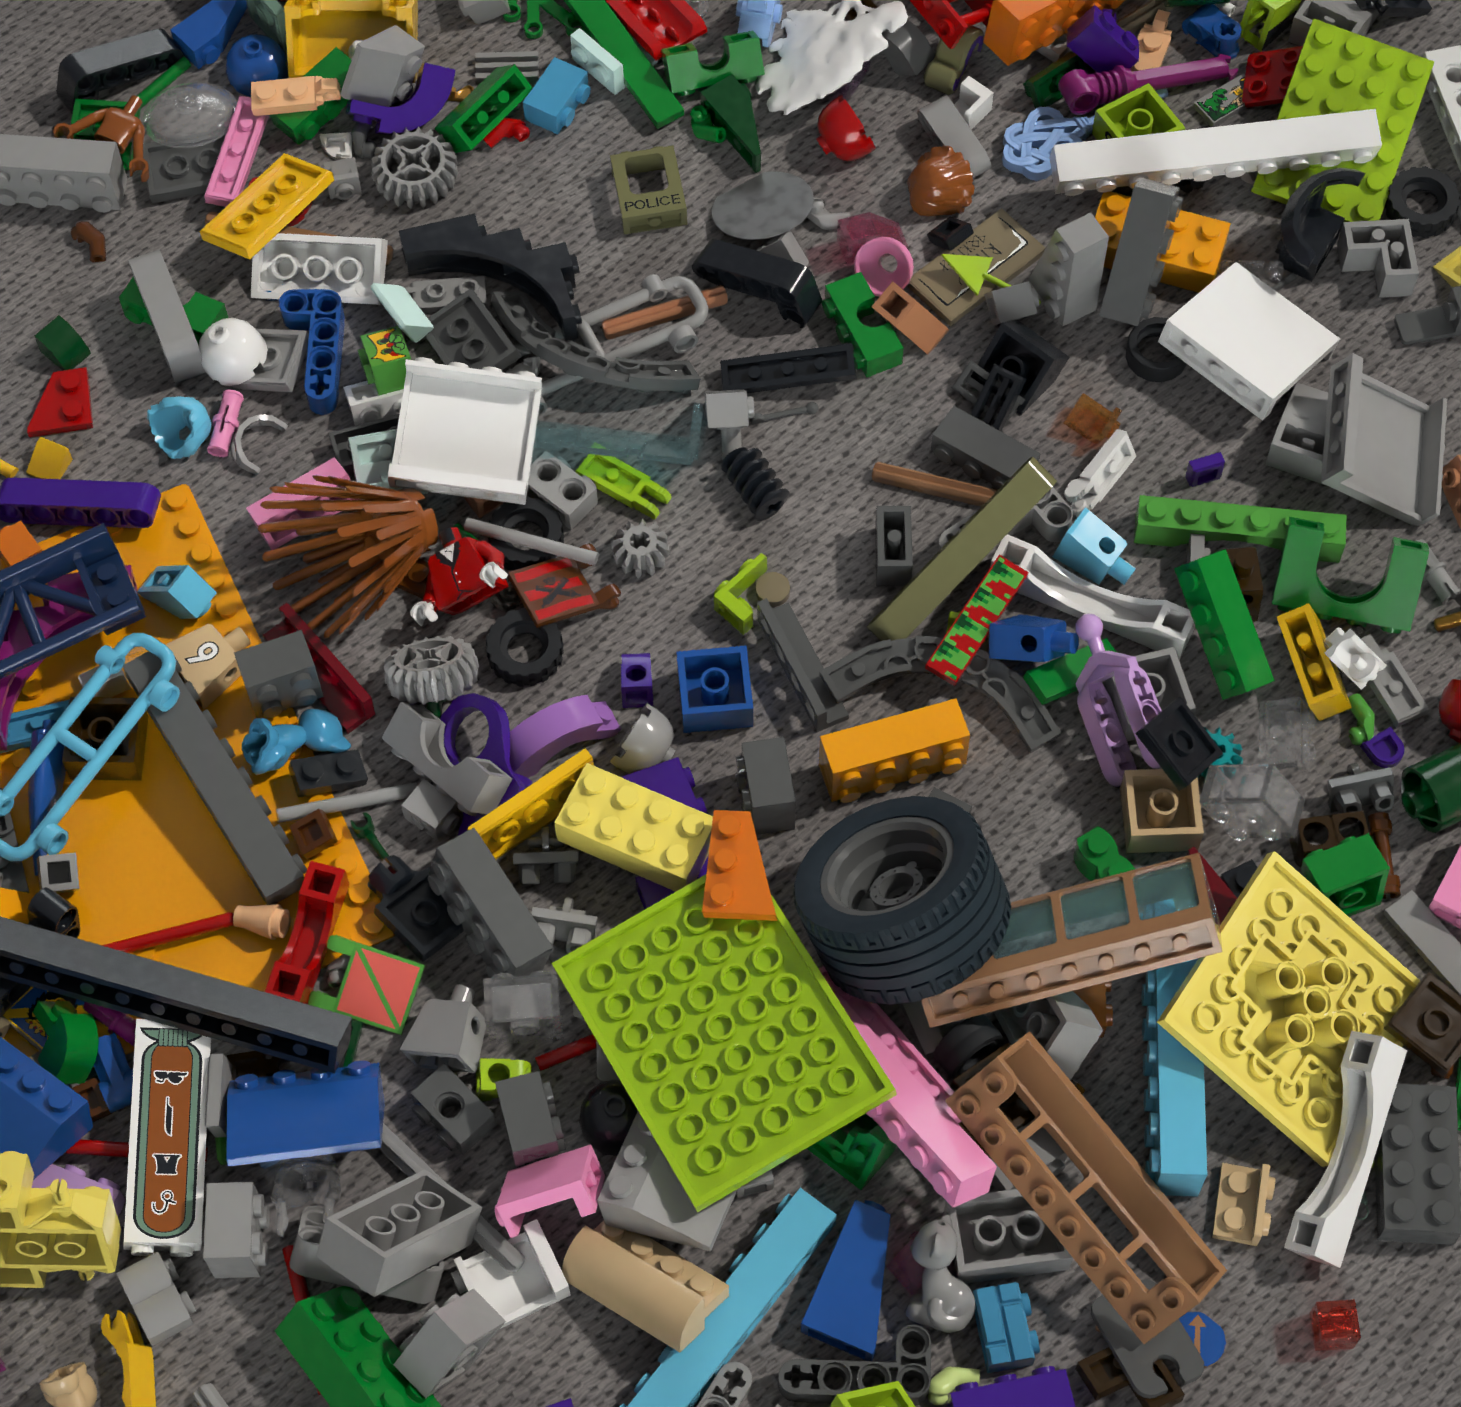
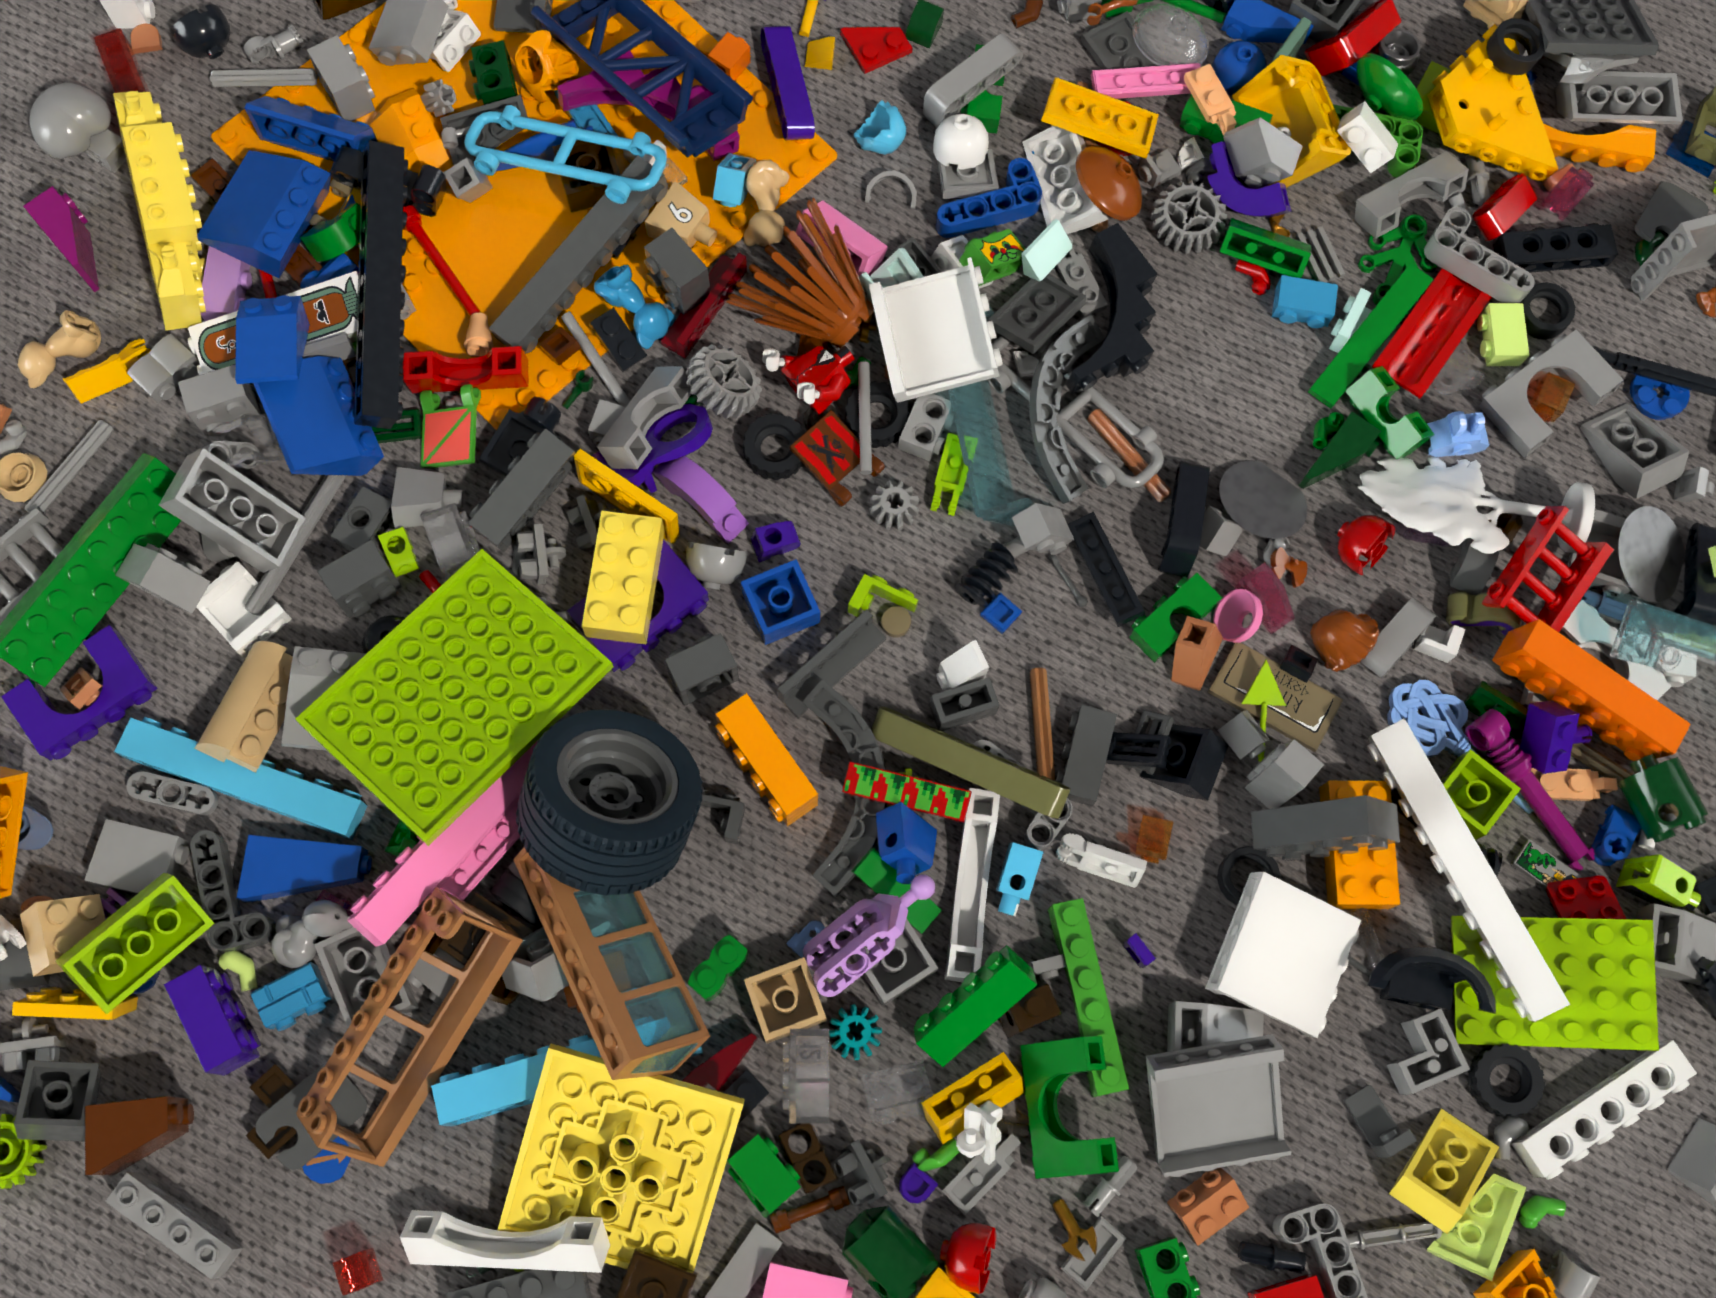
camera: 65 degrees right, 10 degrees up
(198, 1127) = (270, 339): none -> blue slope
(225, 423) = (899, 162): bright pink pin -> none
(249, 578) = (764, 185): none -> tan animal
(346, 220) = (1109, 182): none -> dark orange dish
(549, 1181) = (307, 612): bright pink panel -> none
(650, 209) = (1224, 414): olive window -> none
(735, 871) = (587, 659): orange wing -> none
(800, 485) = (1001, 613): none -> blue tile
(840, 208) = (1281, 561): none -> dark orange piece
(855, 532) = (962, 667): none -> white slope
(1096, 784) = (799, 940): none -> medium blue piece
(1179, 743) = (837, 996): black tile -> none
(1242, 1204) = (451, 1164): tan bracket -> none

